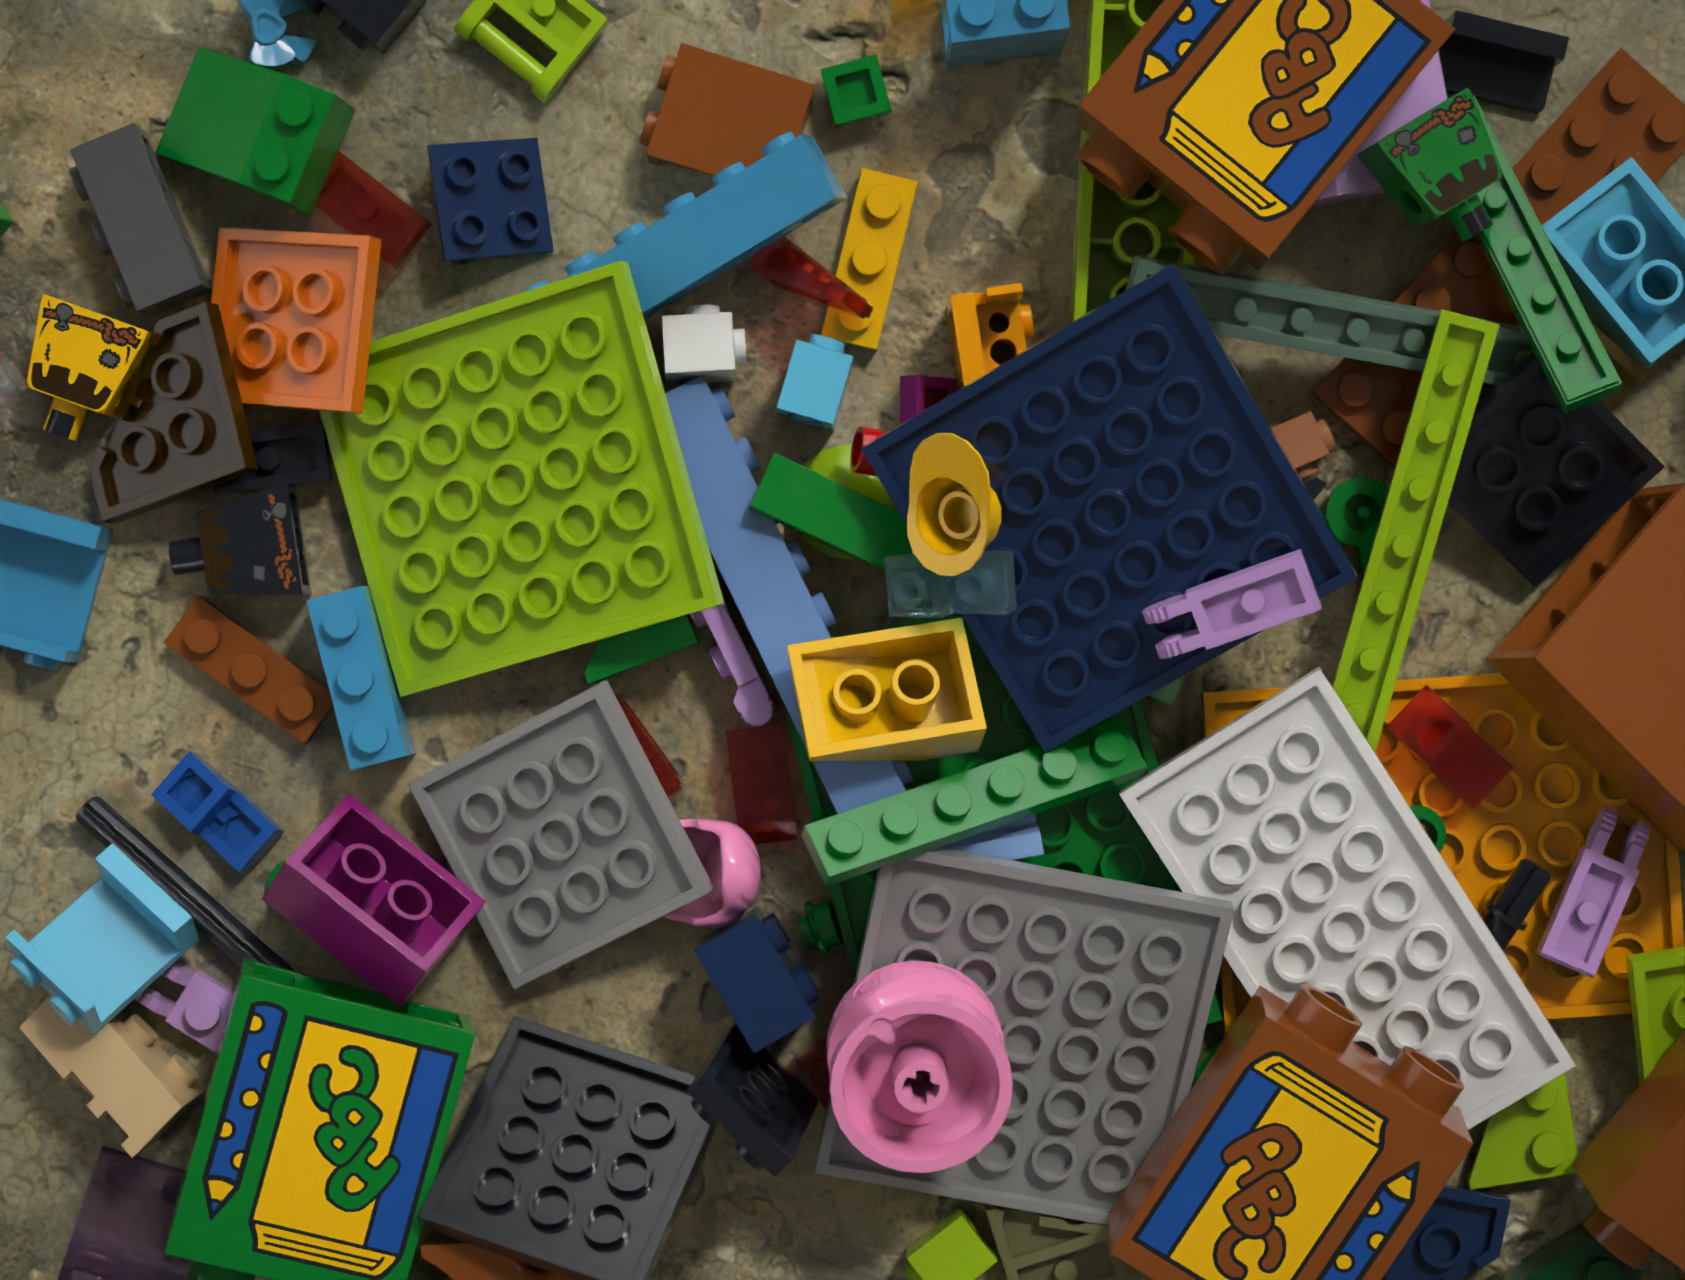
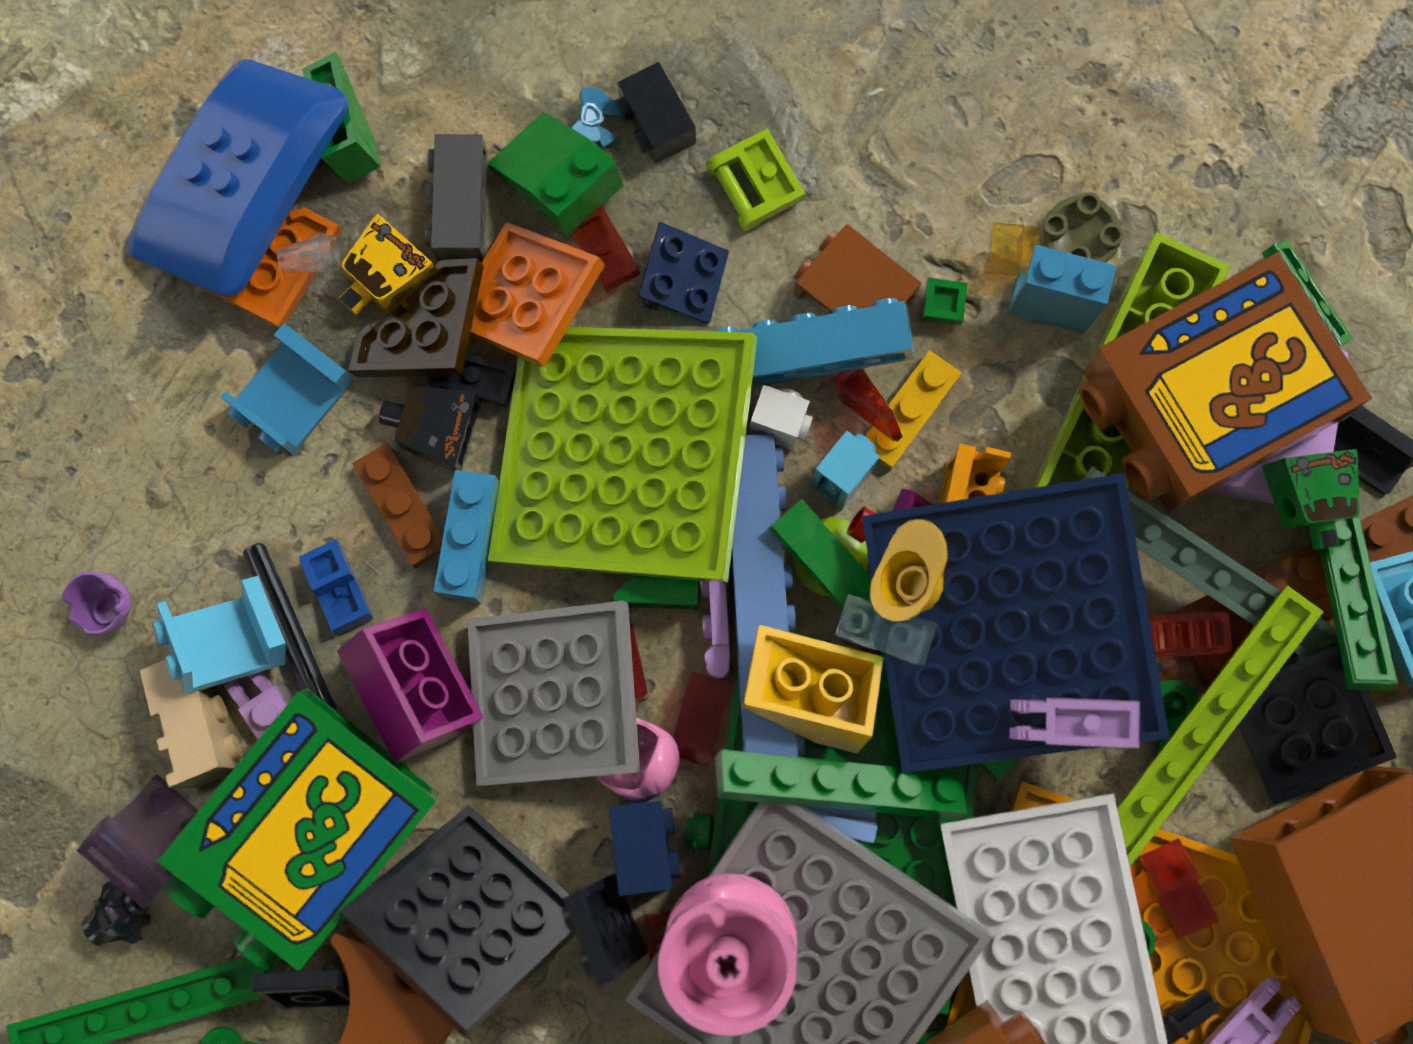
camera: 20 degrees right, 10 degrees down
(1371, 405) = (1211, 633): none -> clear red slope

